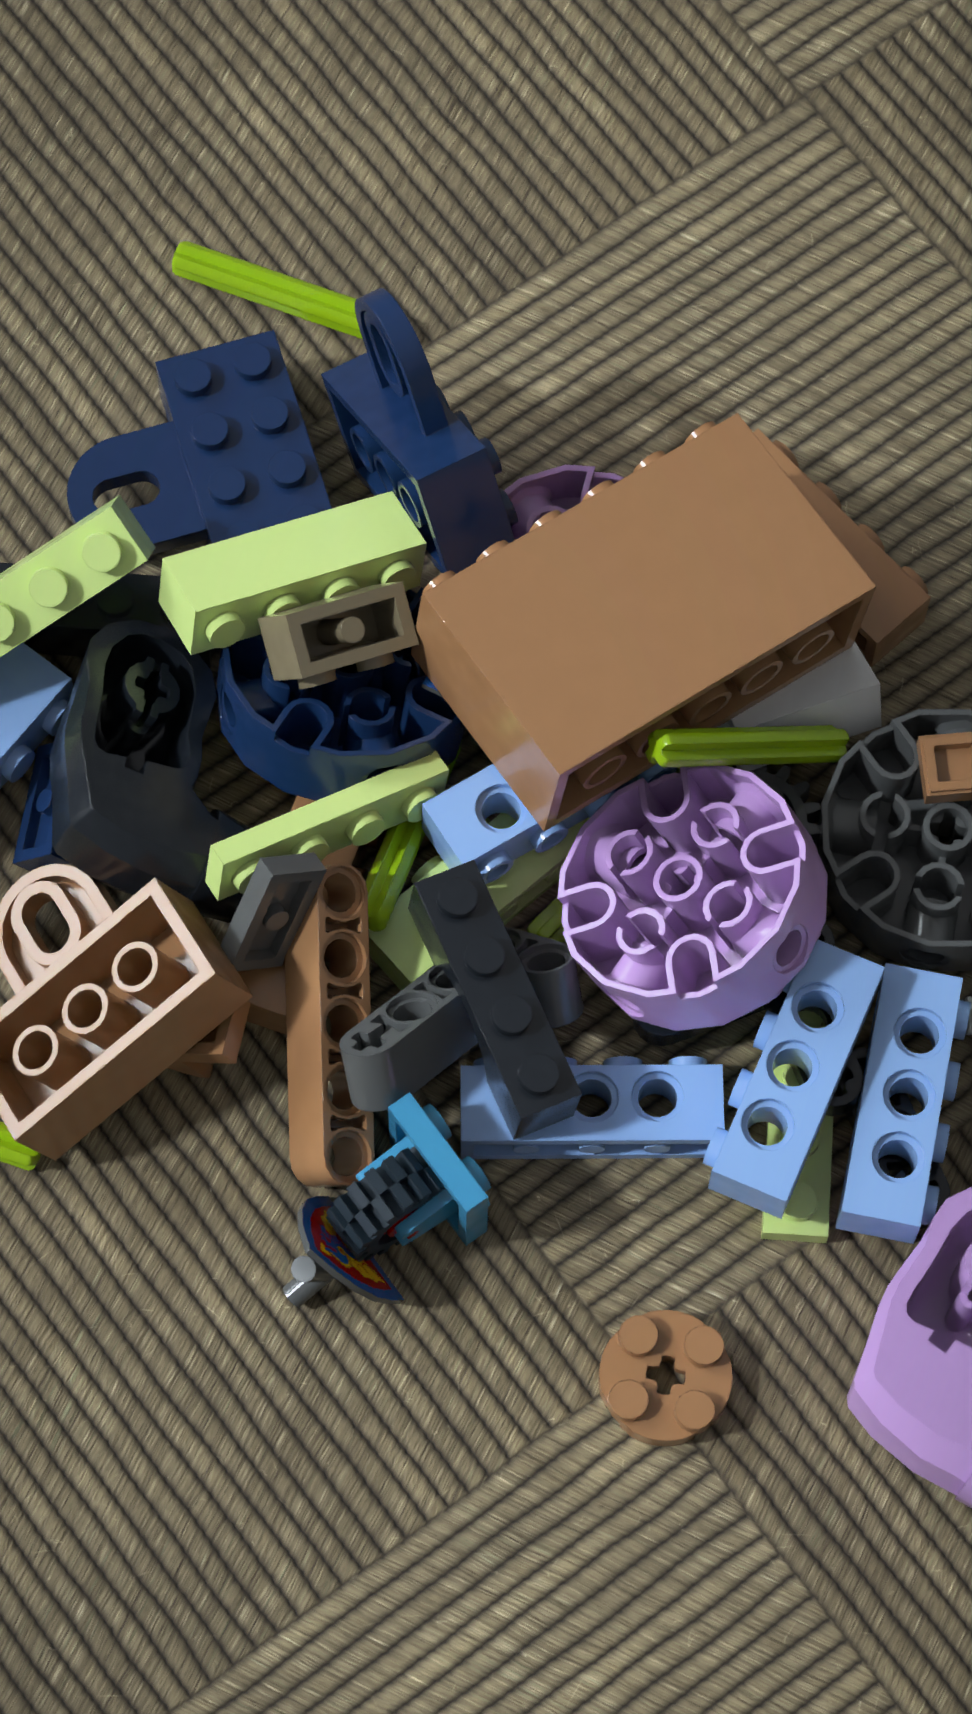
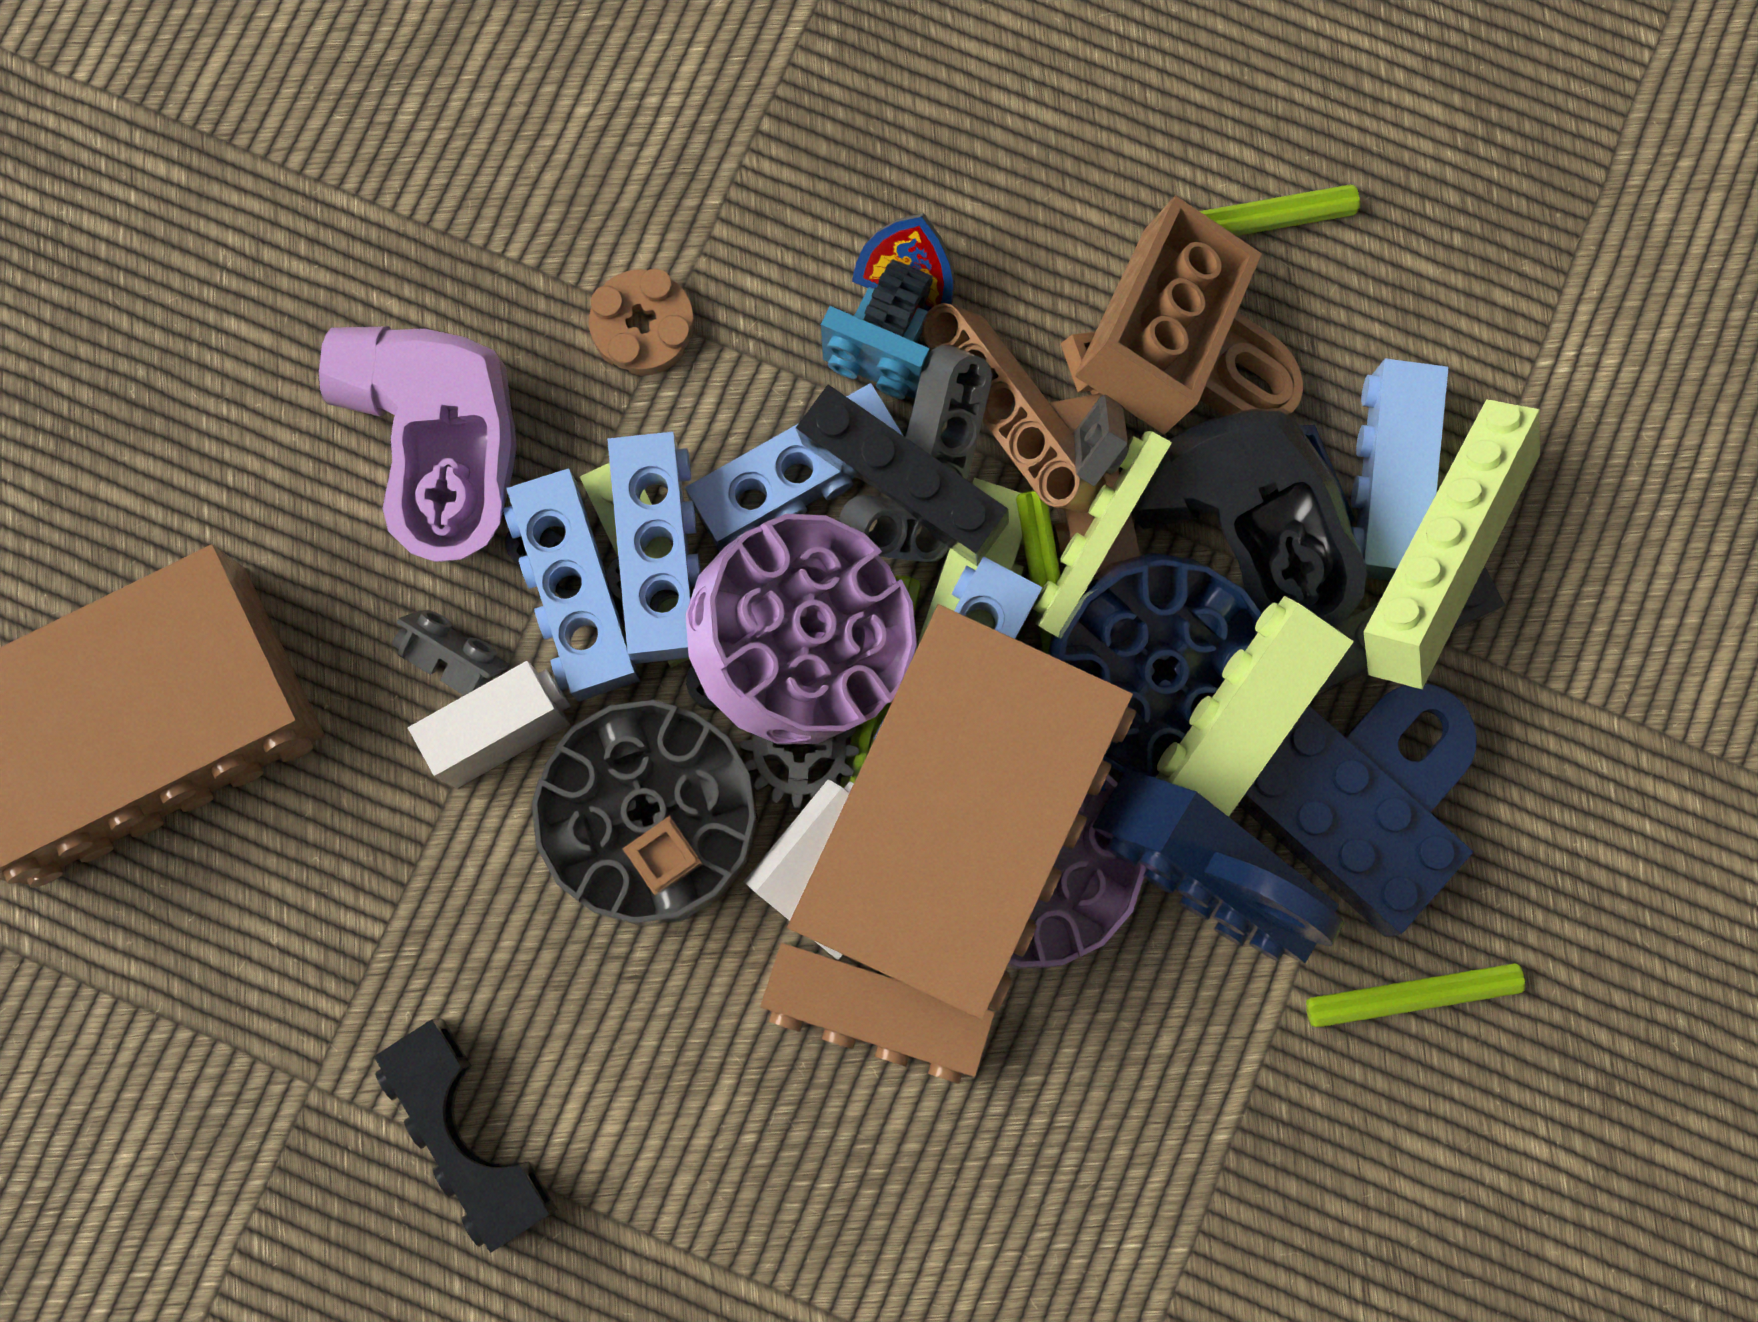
camera: 150 degrees right, 10 degrees up
(338, 632) = (1184, 664): dark tan brick -> none
(746, 746) = (823, 762): lime axle -> none

